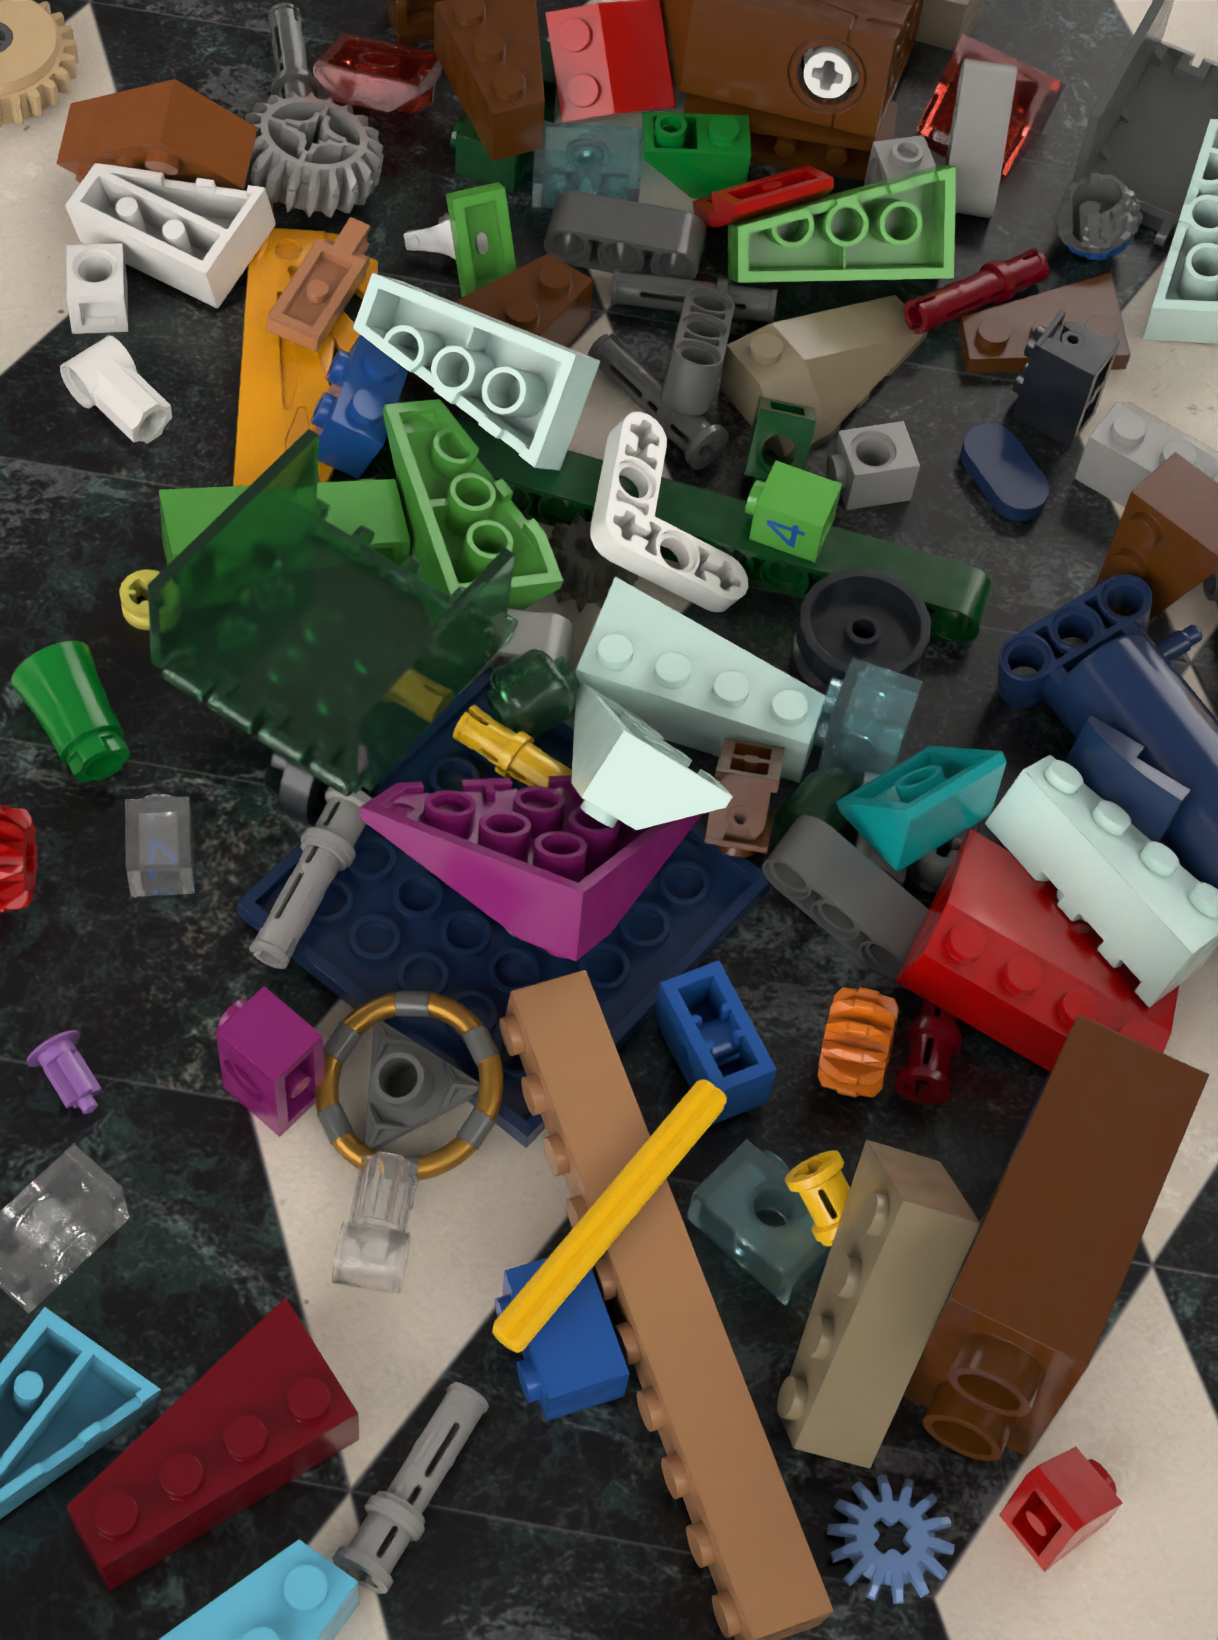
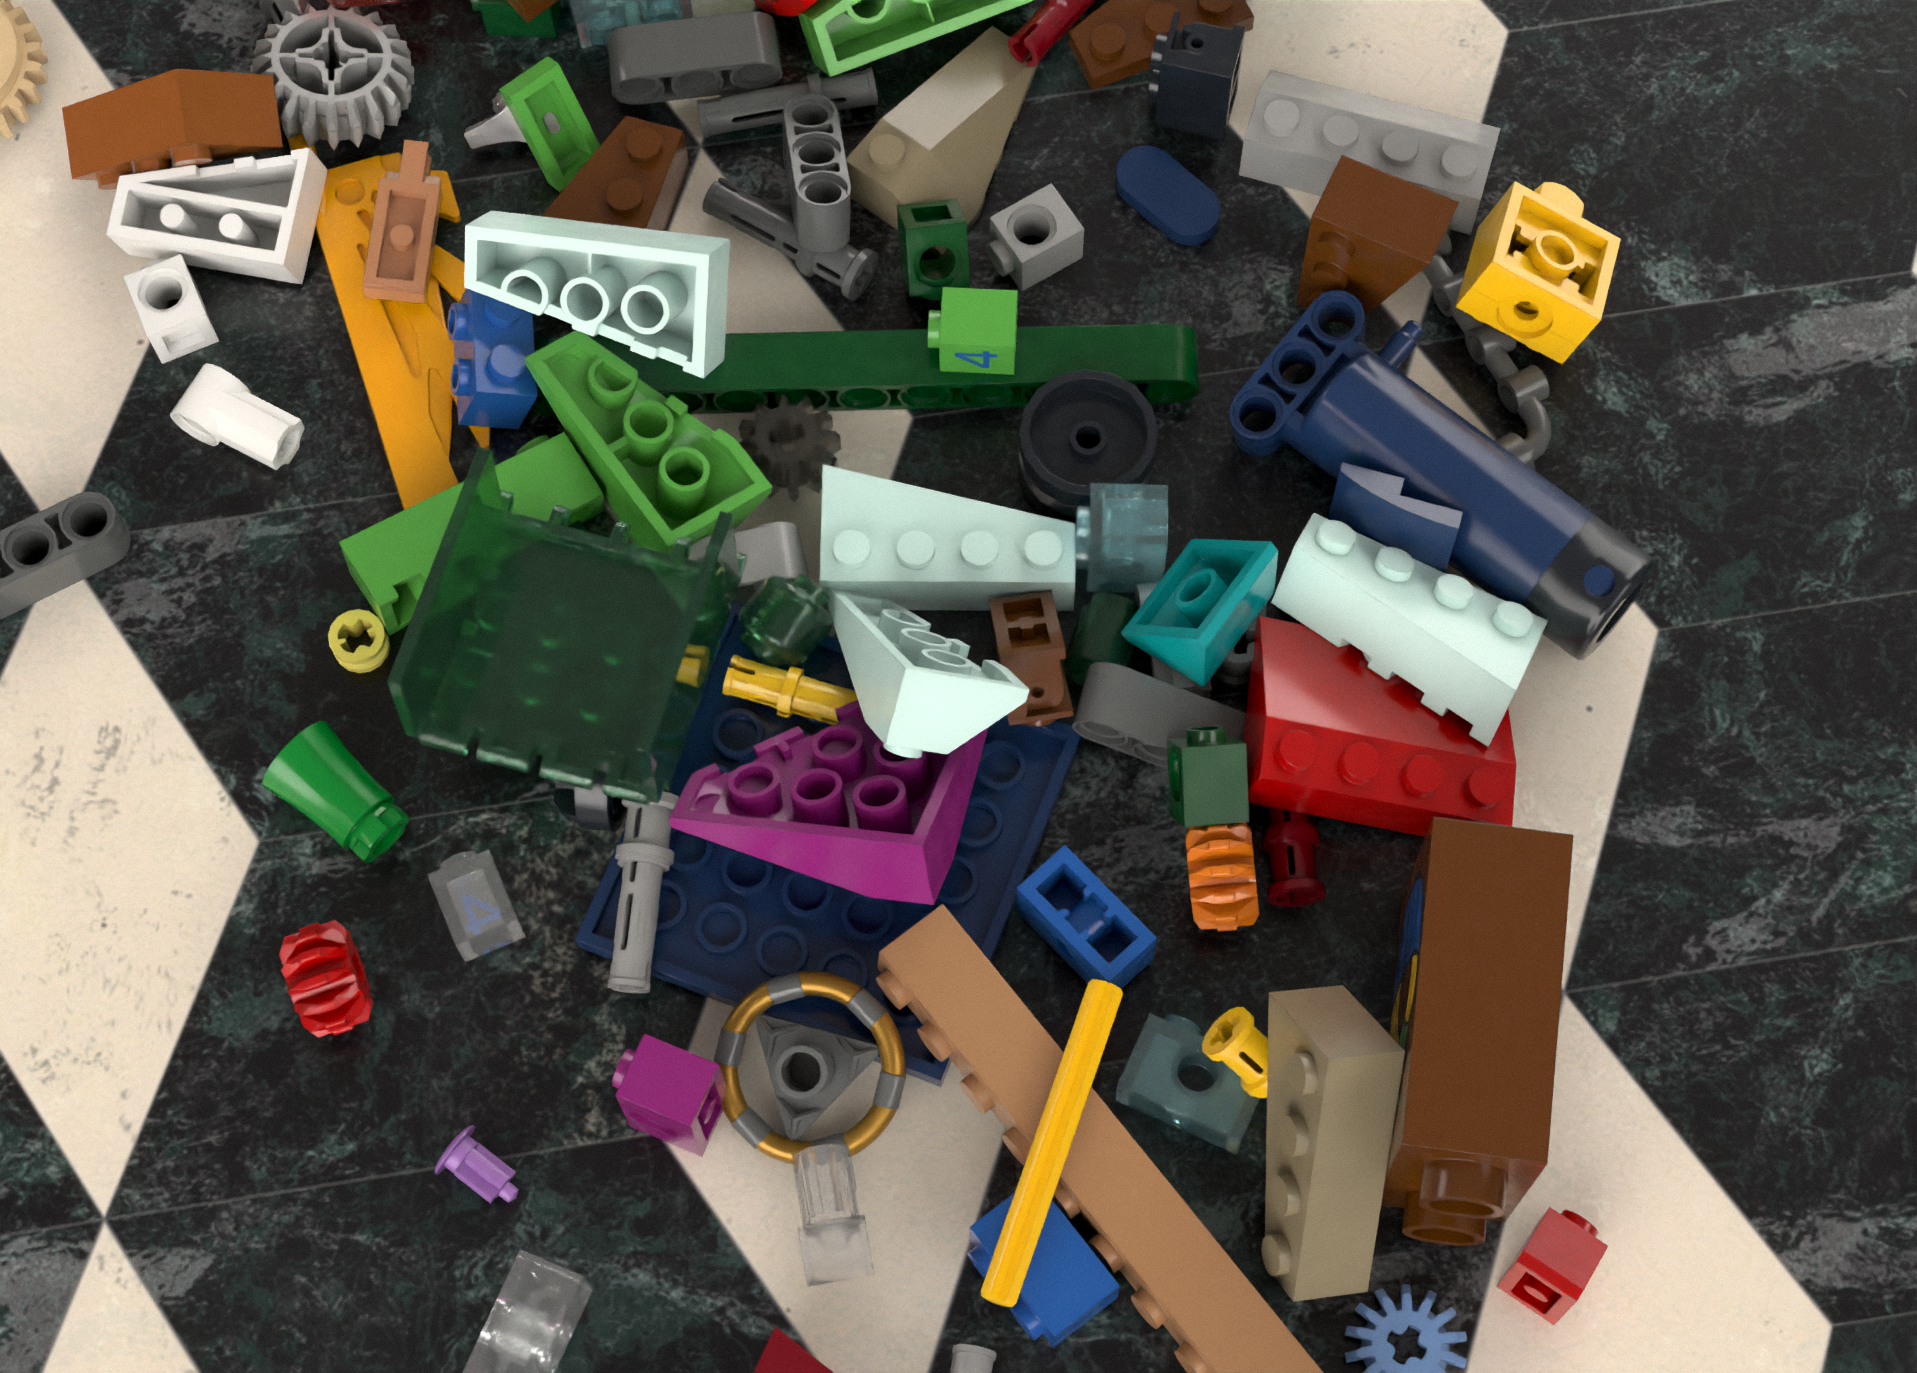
camera: 10 degrees left, 10 degrees up
(631, 535) = (824, 394): white beam -> none
(874, 945) = (1207, 777): none -> dark green brick

